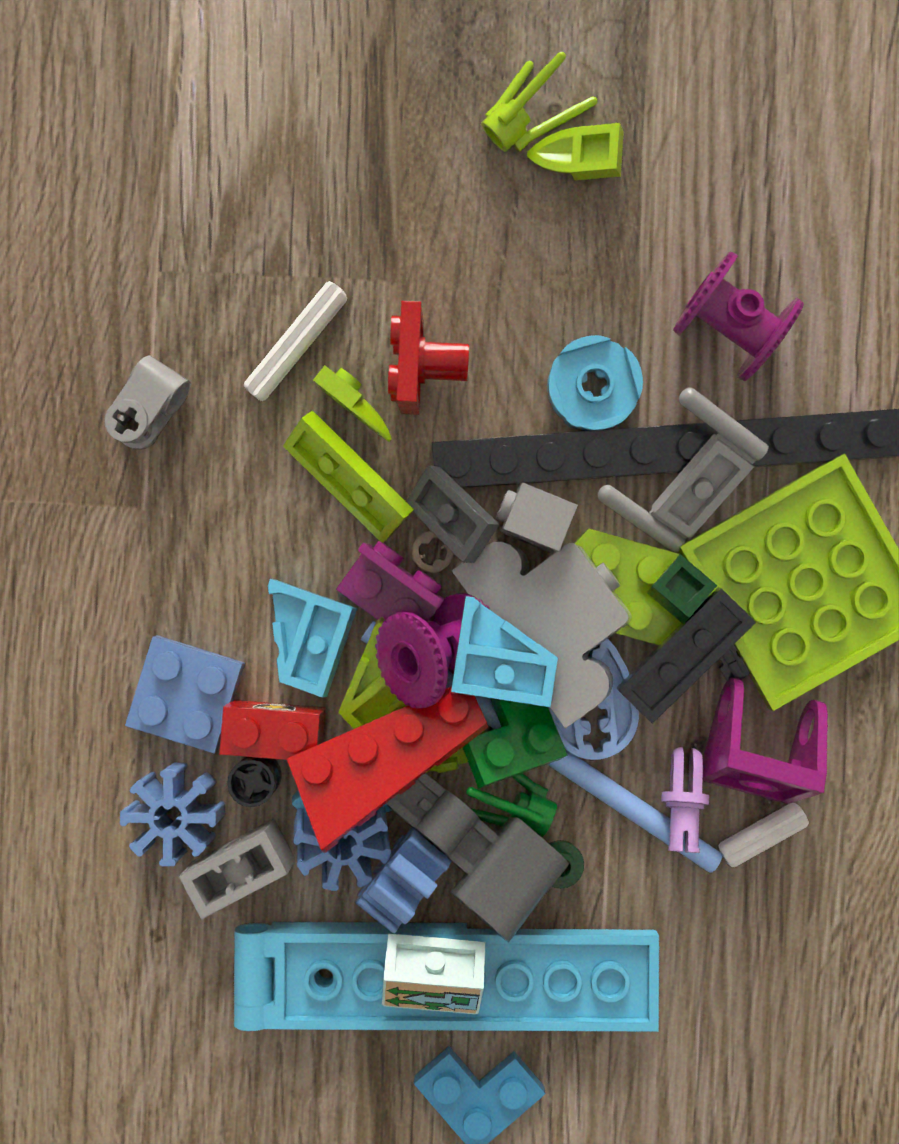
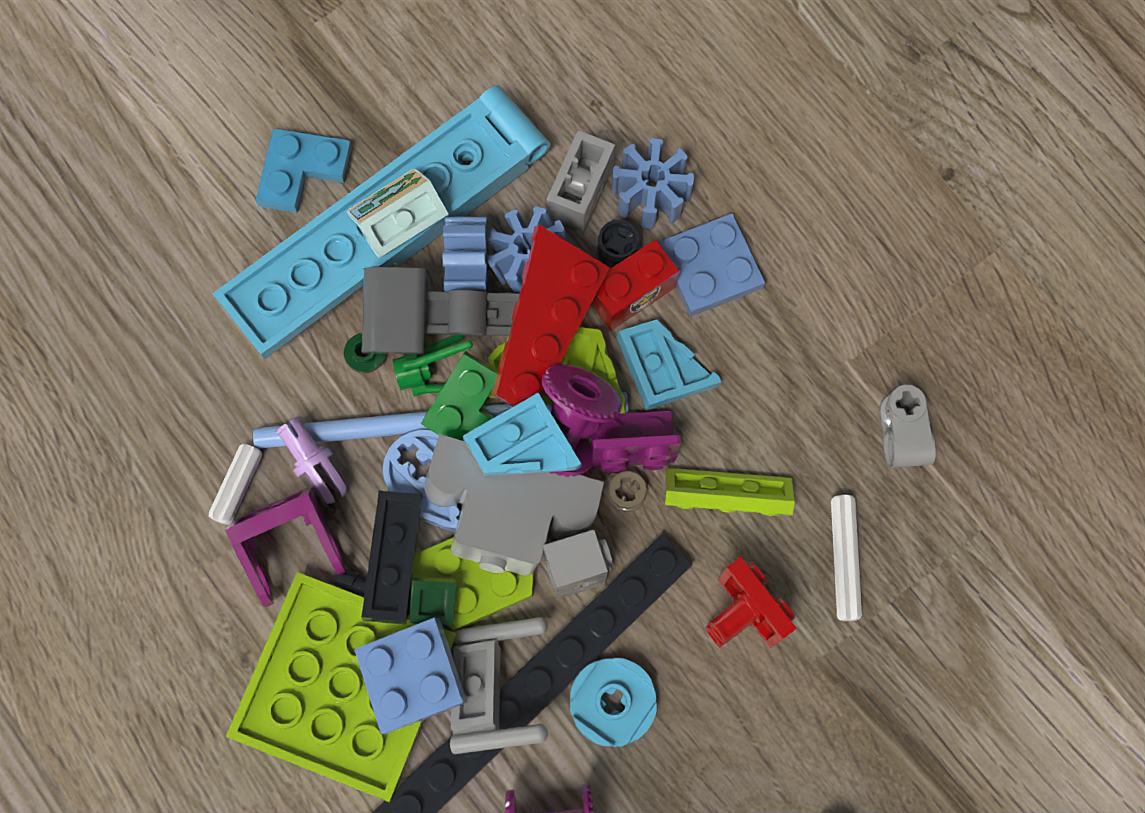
camera: 140 degrees right, 15 degrees down
(344, 390) = (784, 548): lime plate -> none
(452, 514) = (636, 520): dark grey plate -> none
(751, 539) = (410, 676): none -> medium blue plate

